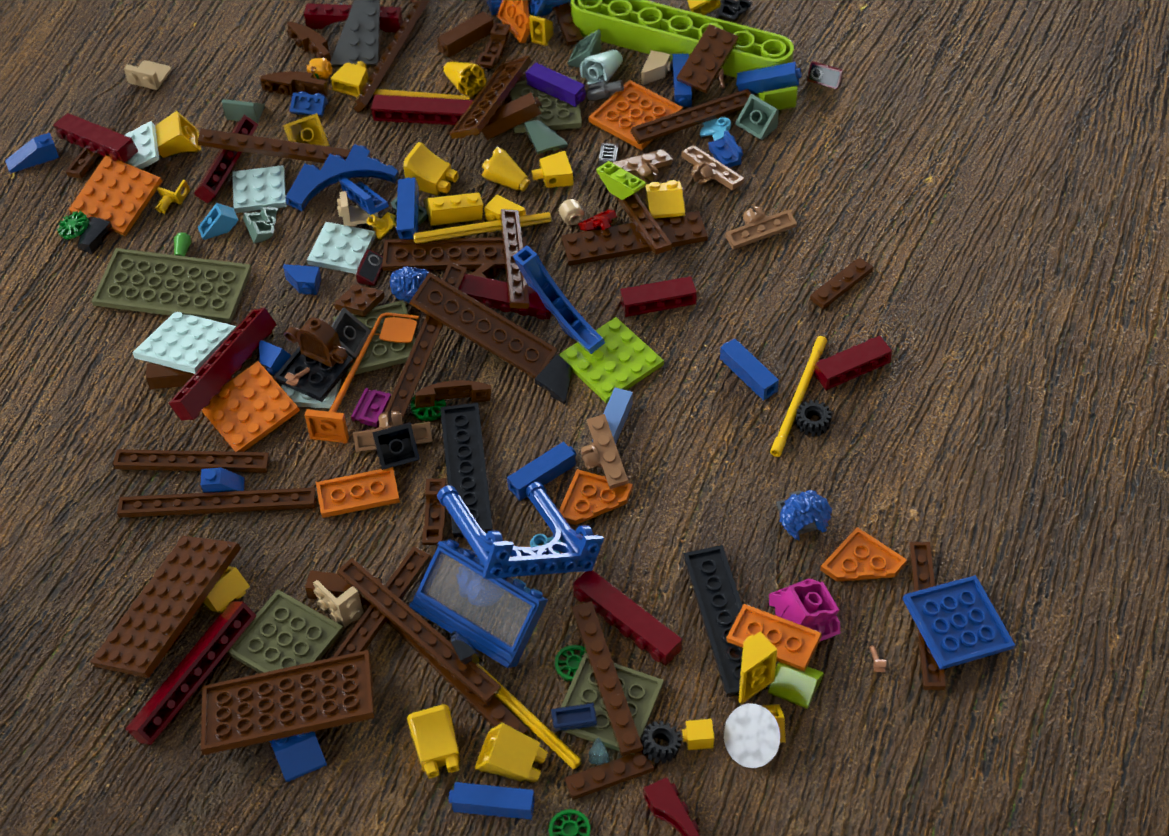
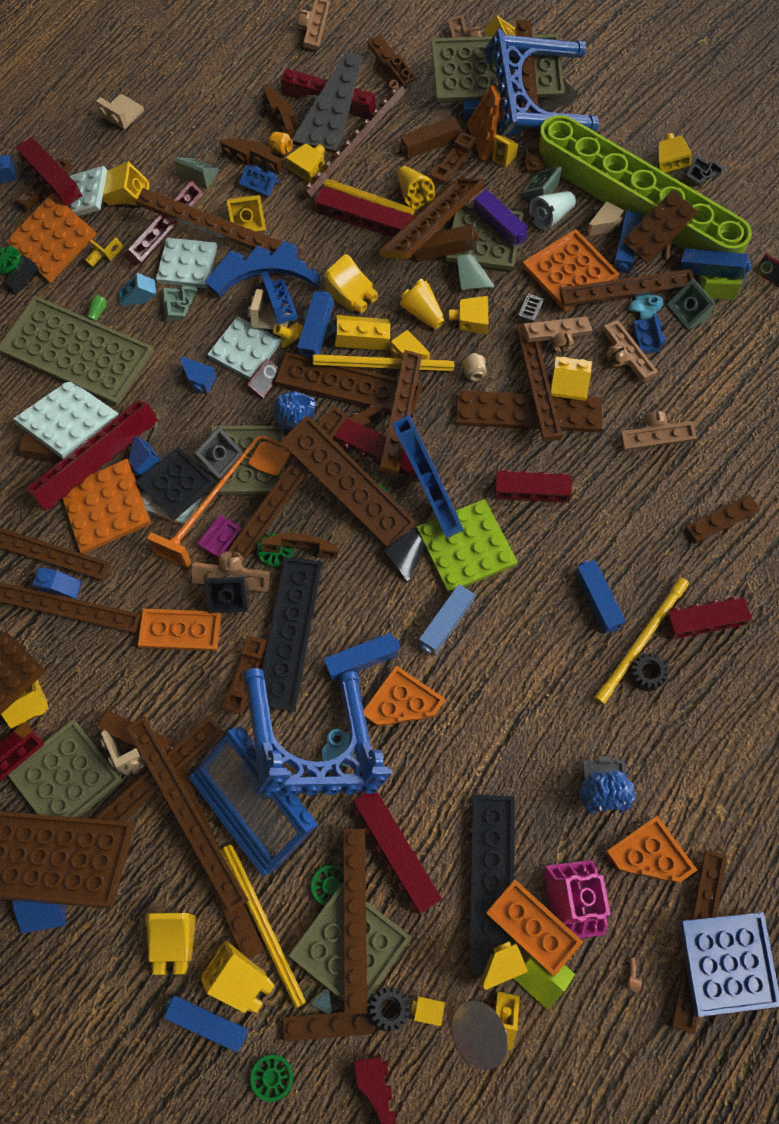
camera: 15 degrees right, 15 degrees up
(294, 379) = (151, 491): nougat hand -> none
(318, 341) = (183, 460): reddish brown piece -> none
(359, 300) = (243, 414): reddish brown plate -> none
(464, 649) = (224, 848): black slope -> none
(574, 717) = (310, 956): dark blue tile -> none
(601, 219) = (498, 383): red hinge -> none
(603, 89) = (546, 234): dark grey arm -> none
(603, 452) = (426, 657): medium nougat plate -> none
(619, 181) = (530, 348): lime slope -> none

